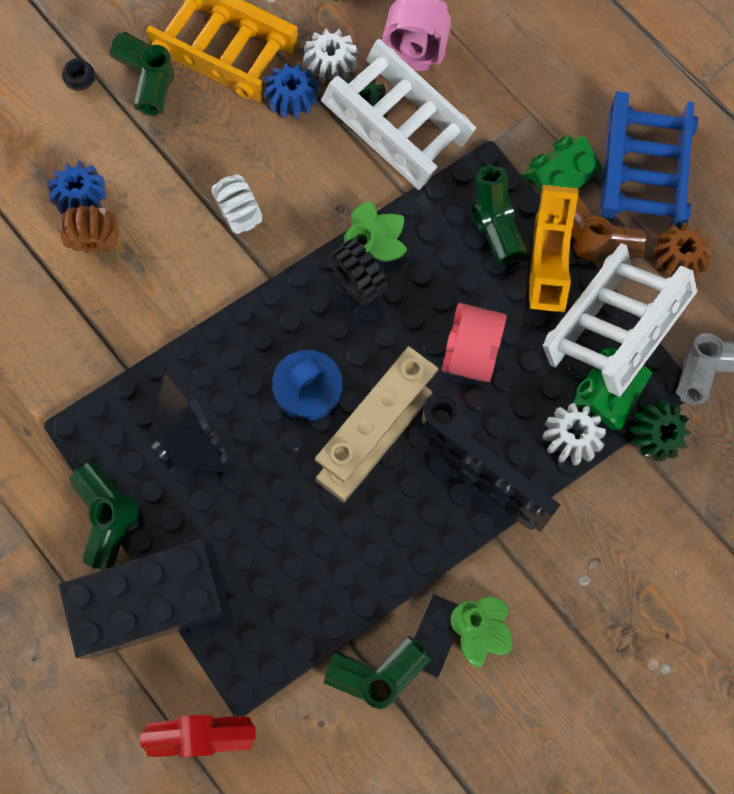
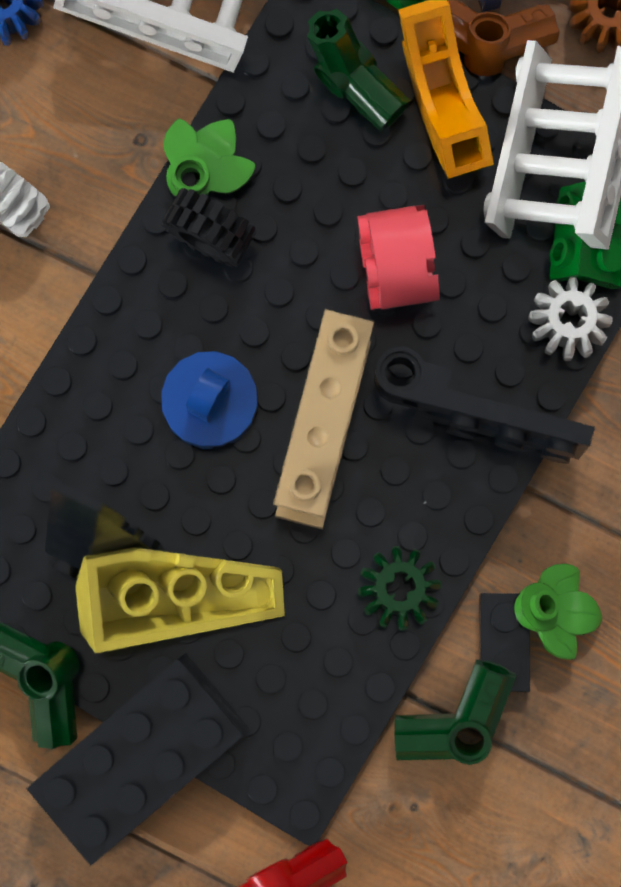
camera: 20 degrees left, 10 degrees up
(212, 493) = (160, 595): none -> light yellow wedge
(385, 574) = (412, 598): none -> dark green gear

